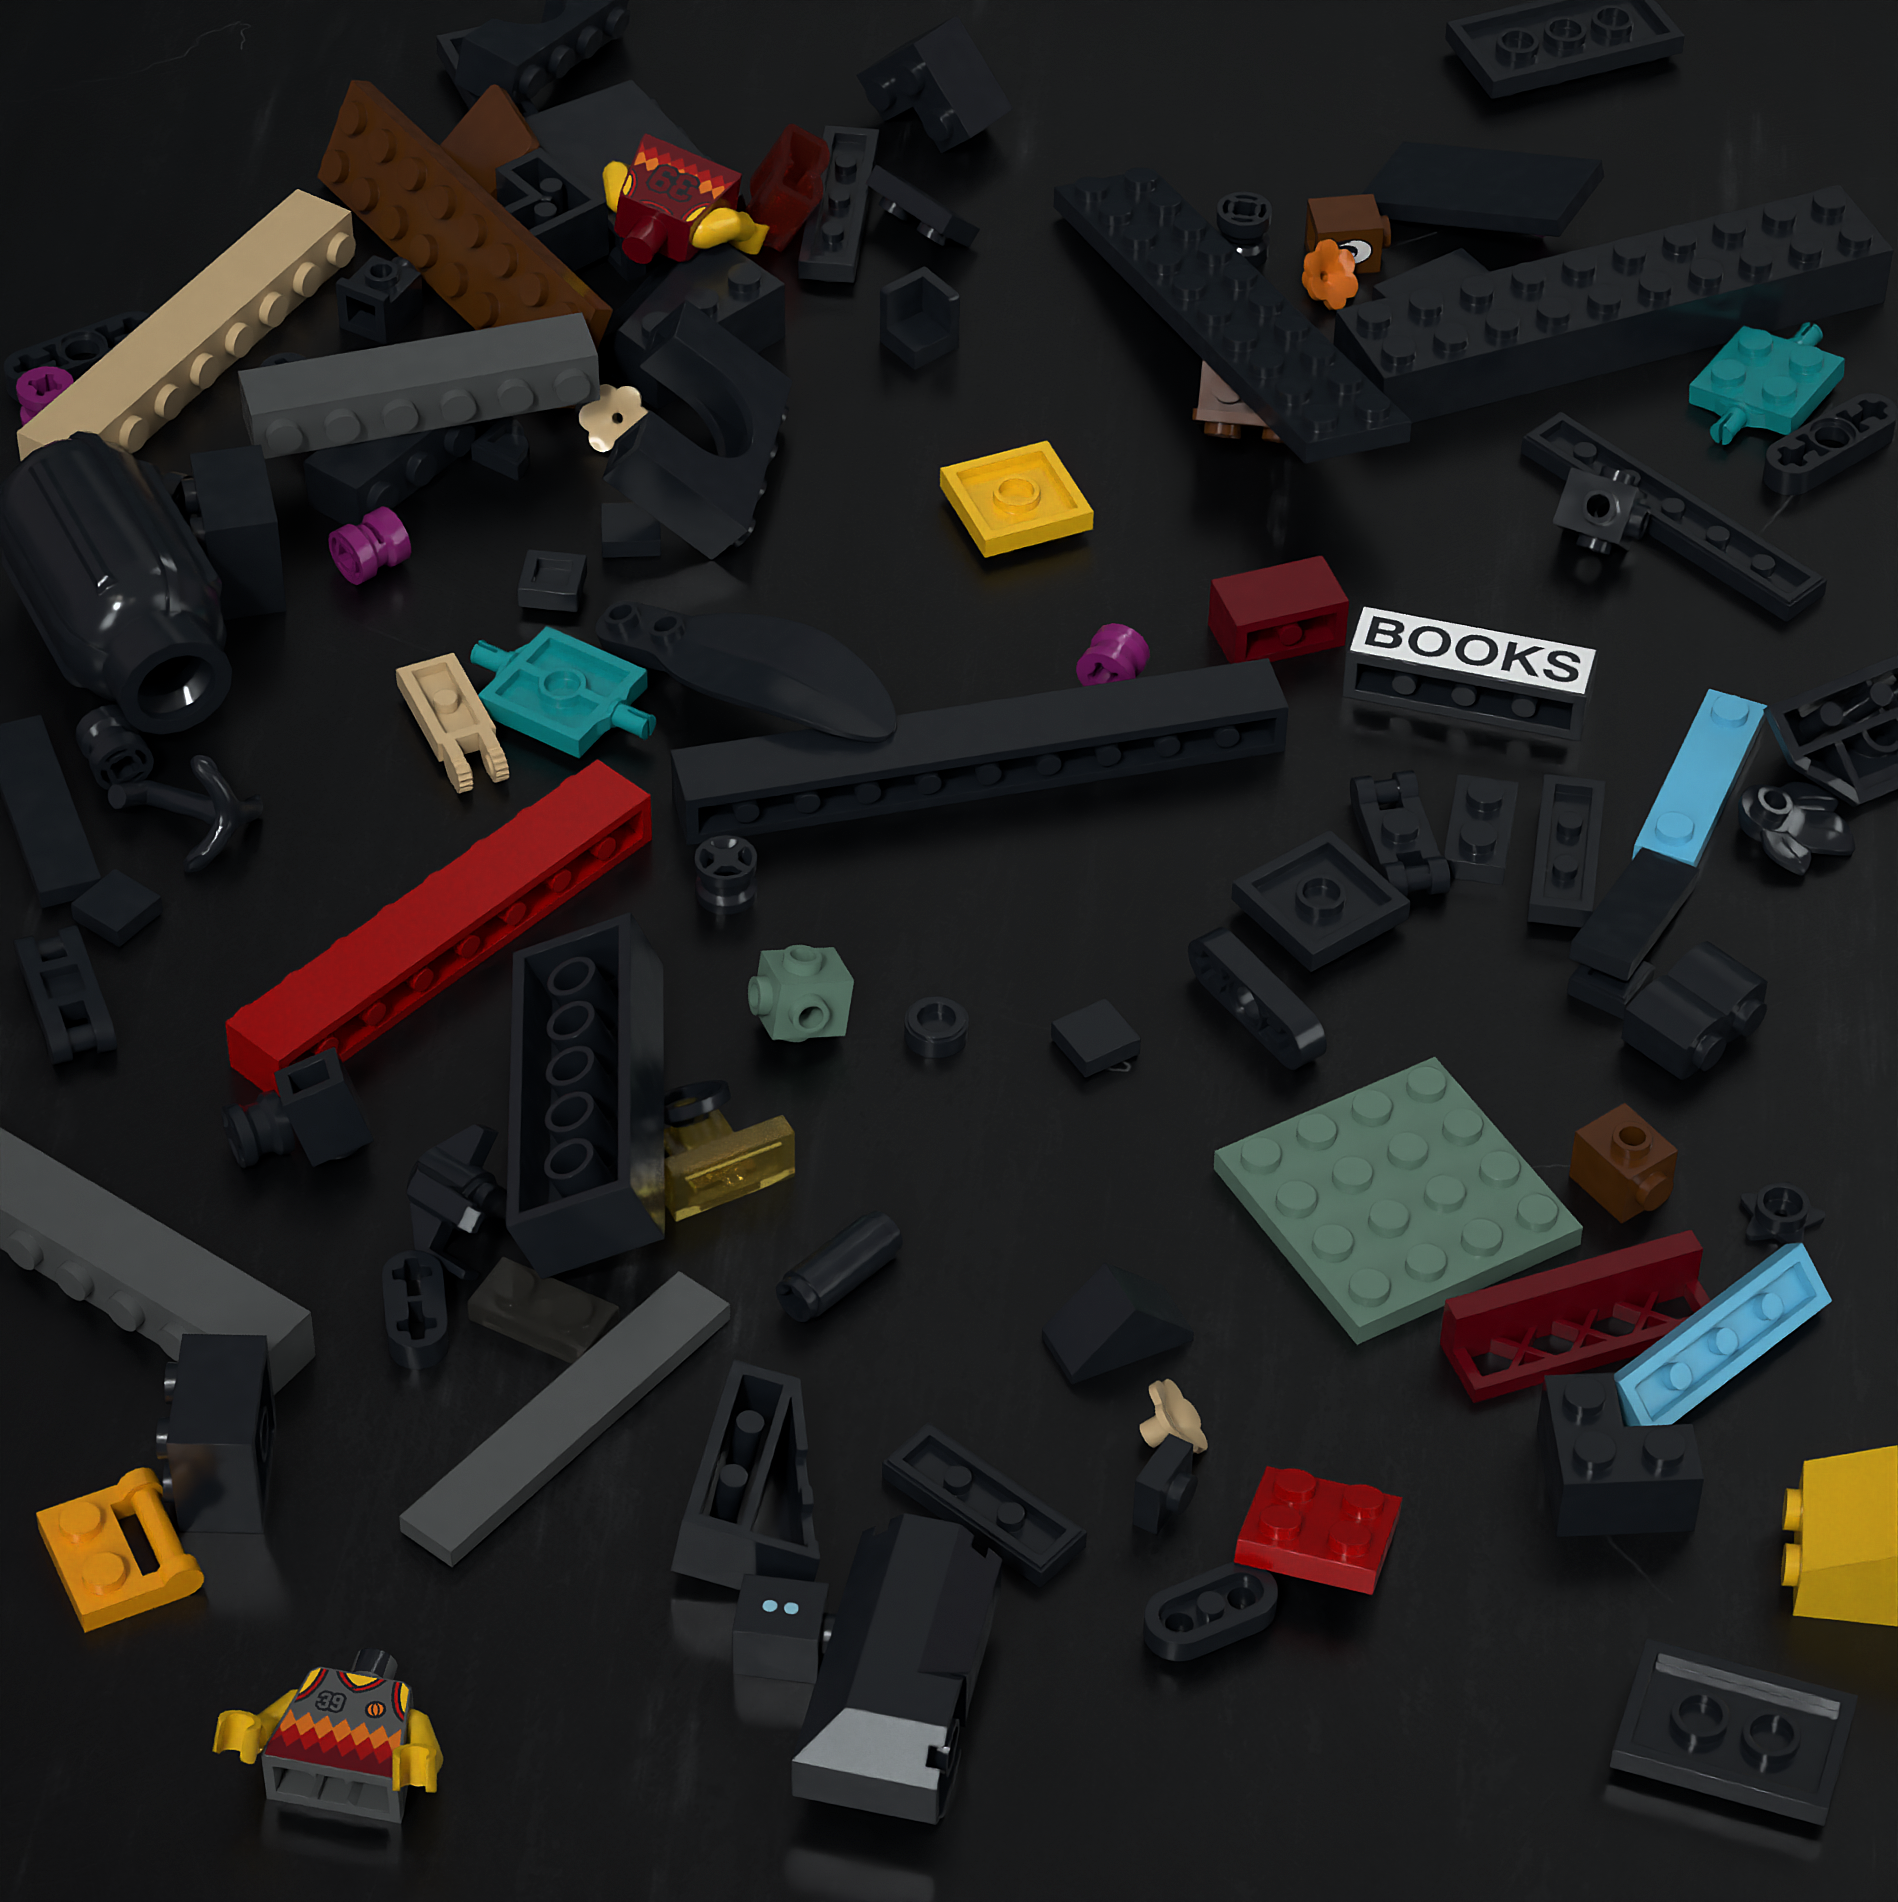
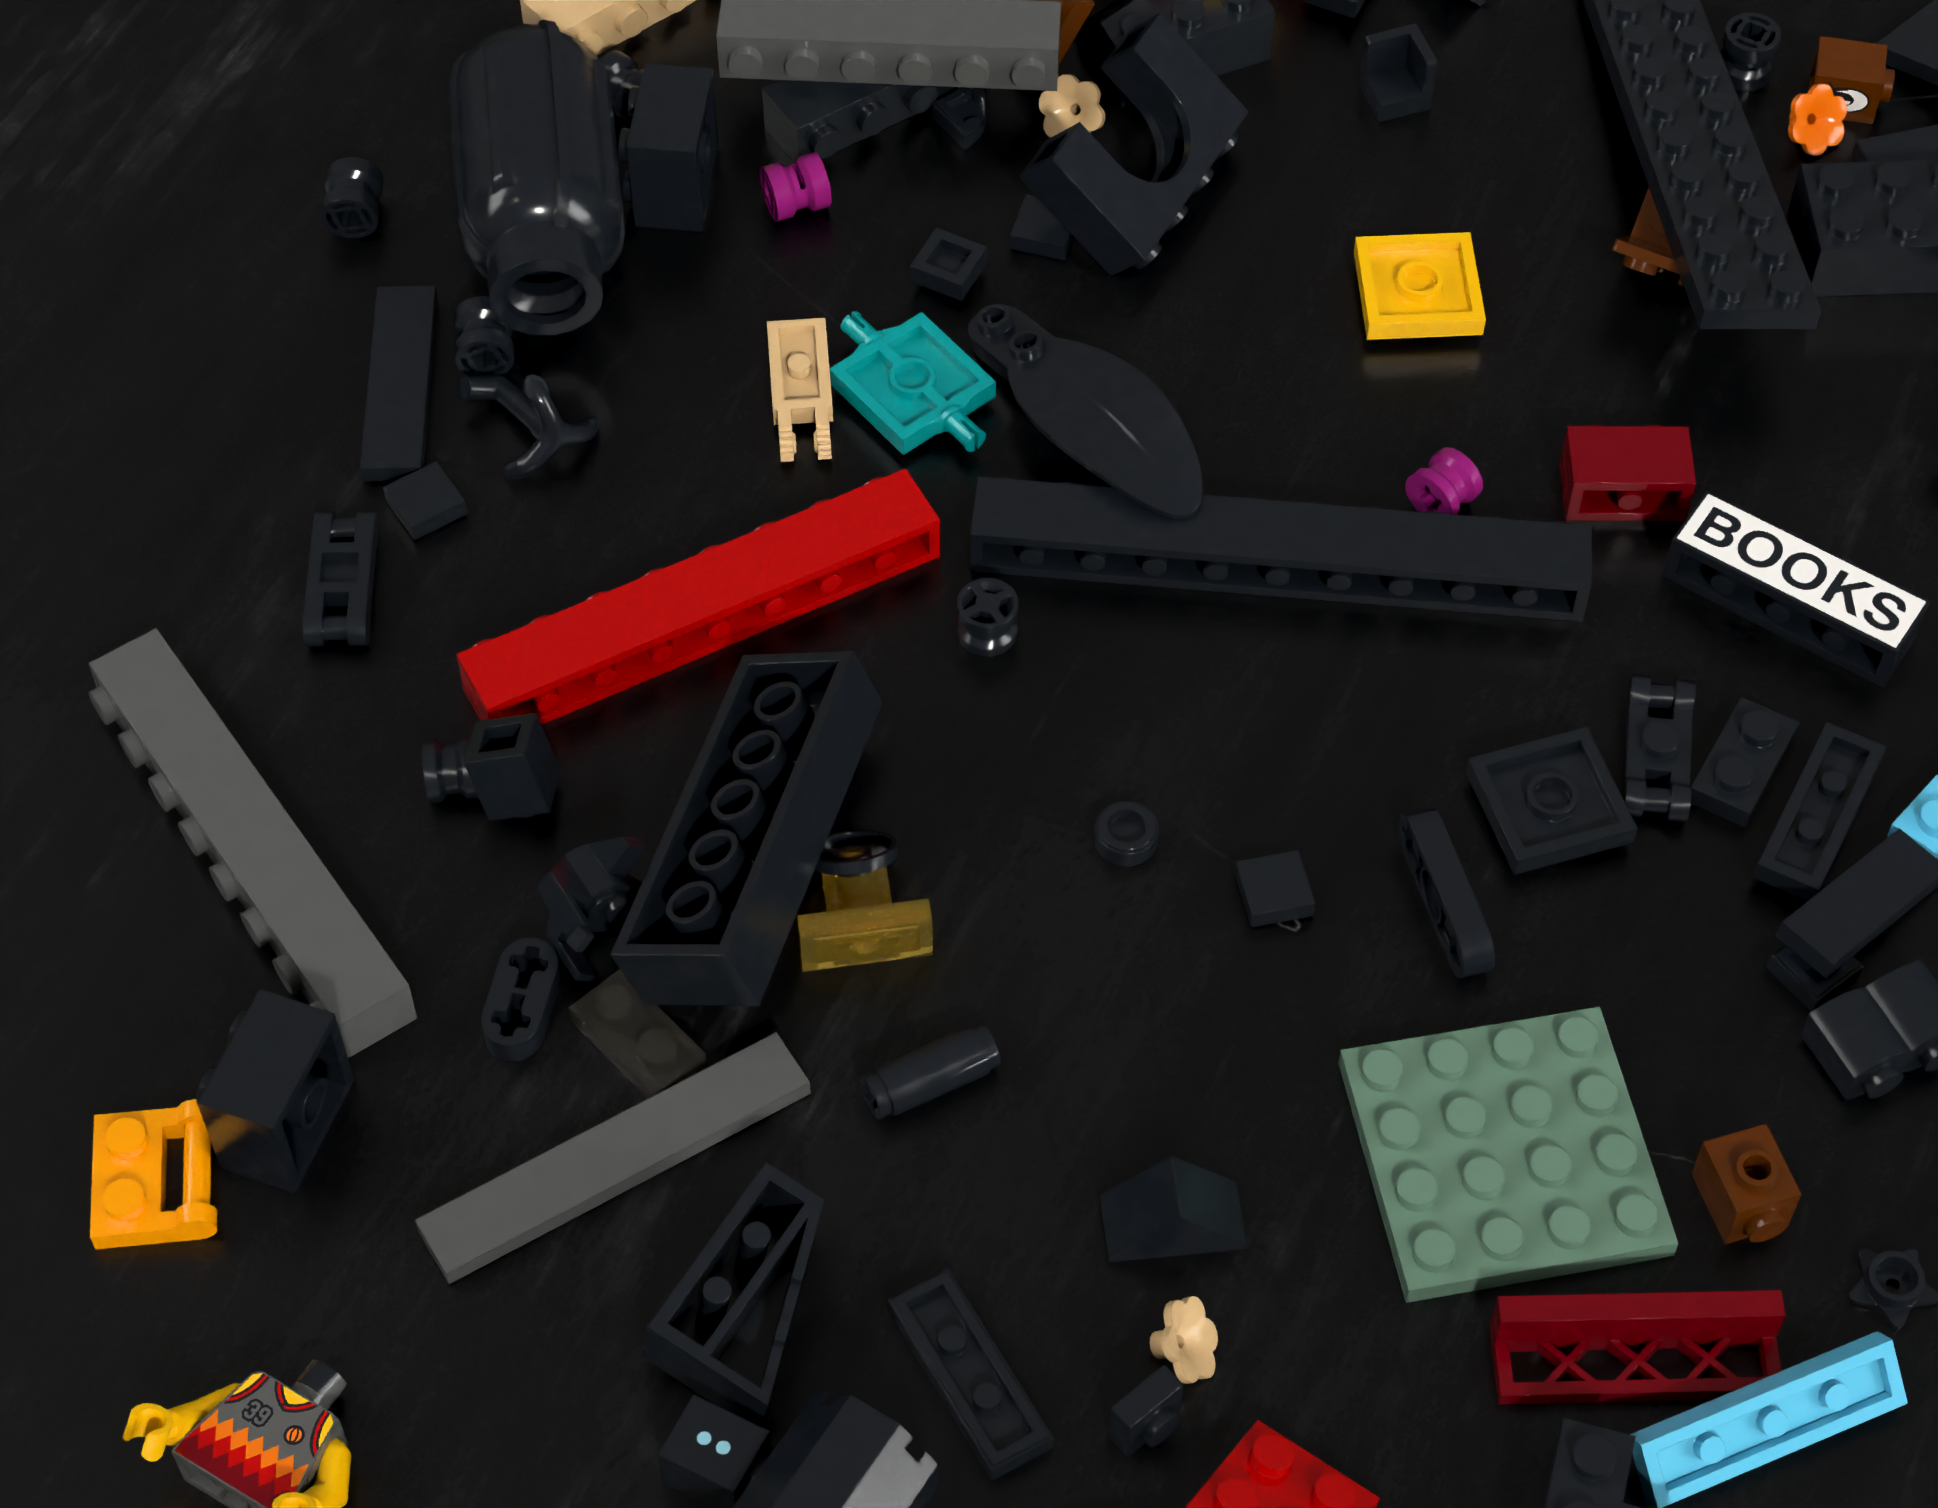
camera: 20 degrees right, 10 degrees up
(801, 993) = (1002, 767): sand green brick -> none

